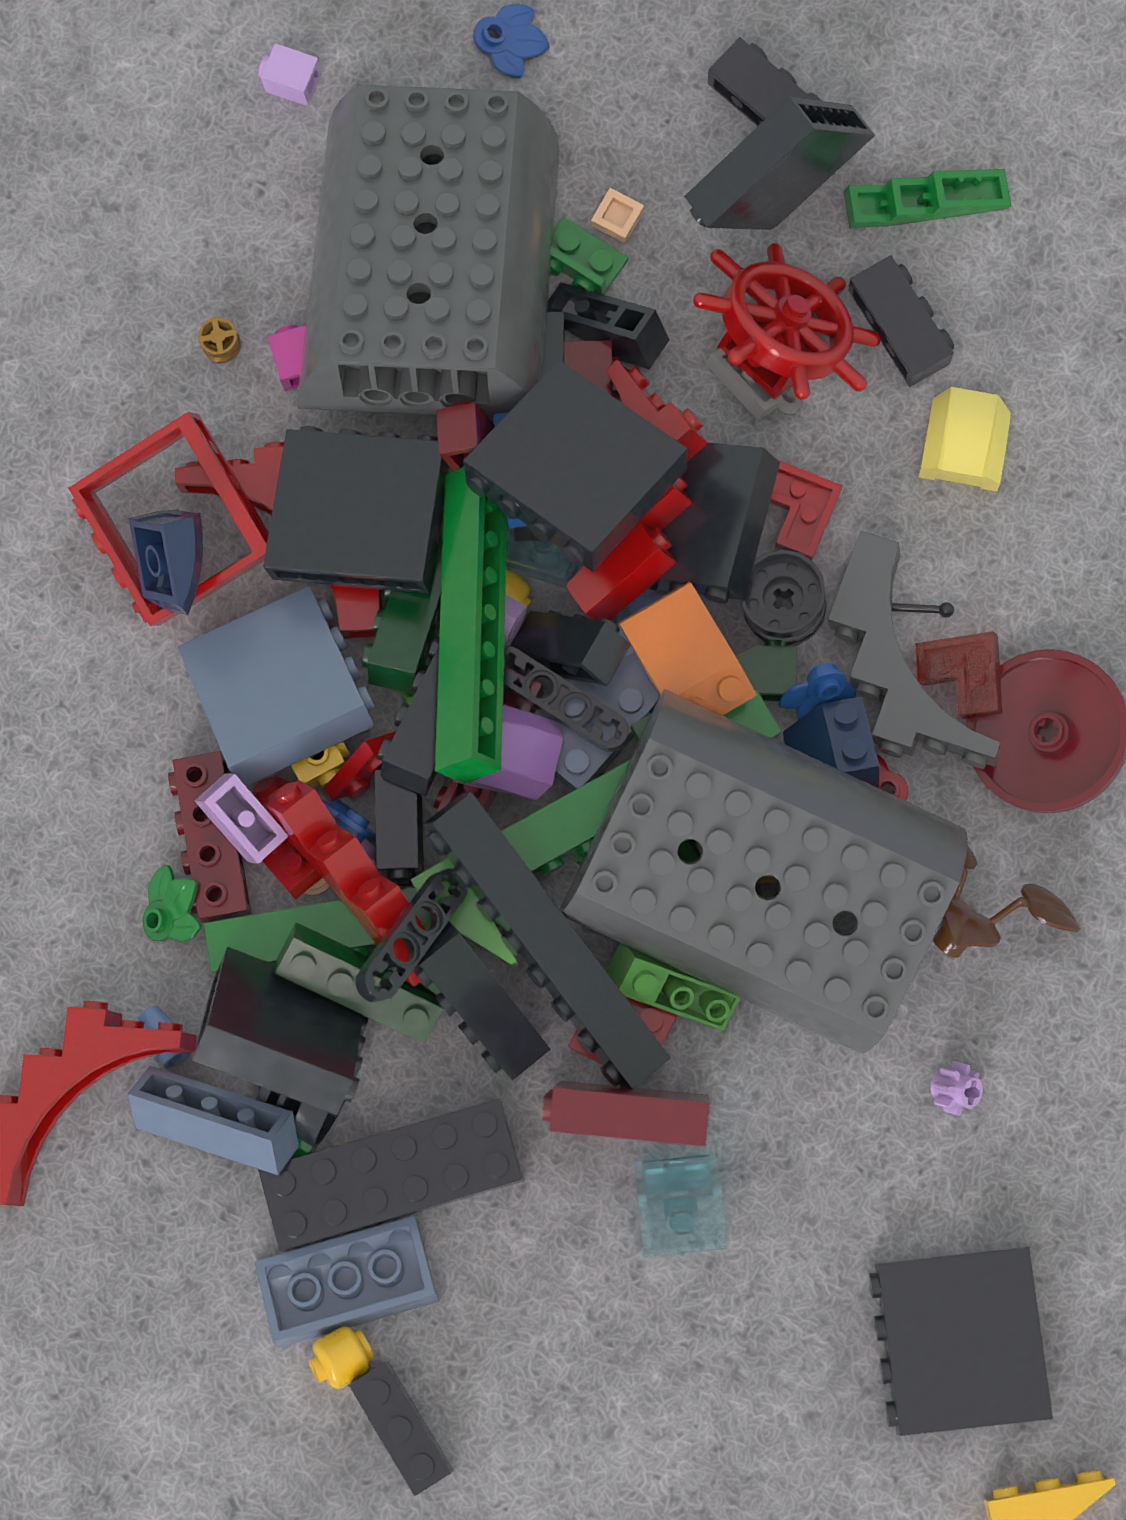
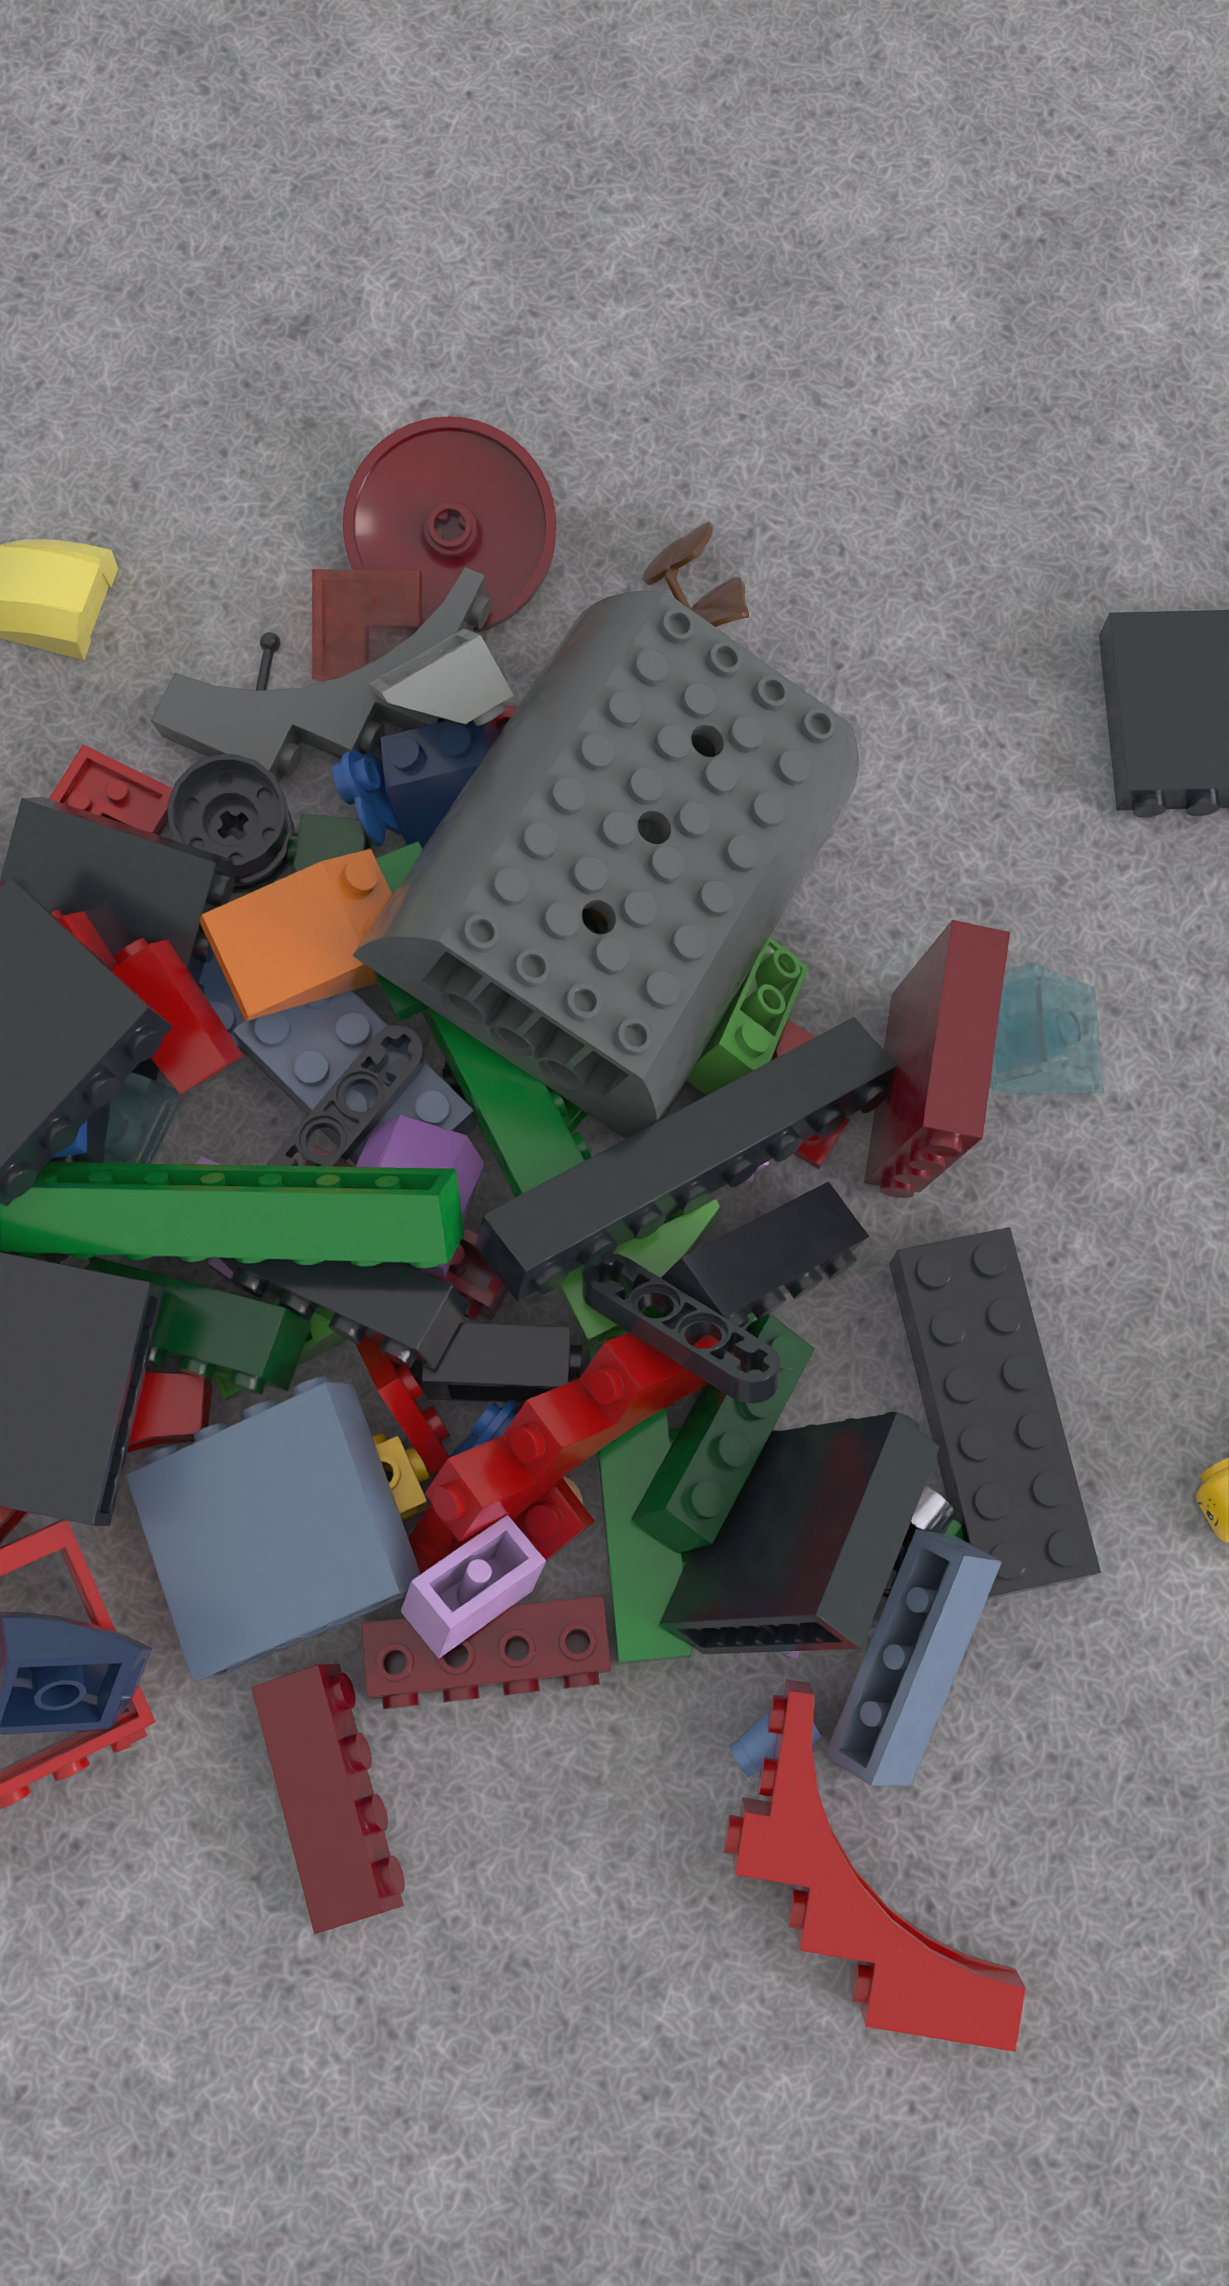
camera: 100 degrees left, 5 degrees down
(110, 742) = (328, 1796): none -> dark red brick
(171, 904) = (584, 1709): green plate -> none
(346, 1281) = (1136, 1492): sand blue slope -> none
(572, 645) = (269, 1088): black brick -> none
(894, 733) = (449, 681): none -> light grey slope
(956, 1088) = (902, 683): lavender gear -> none

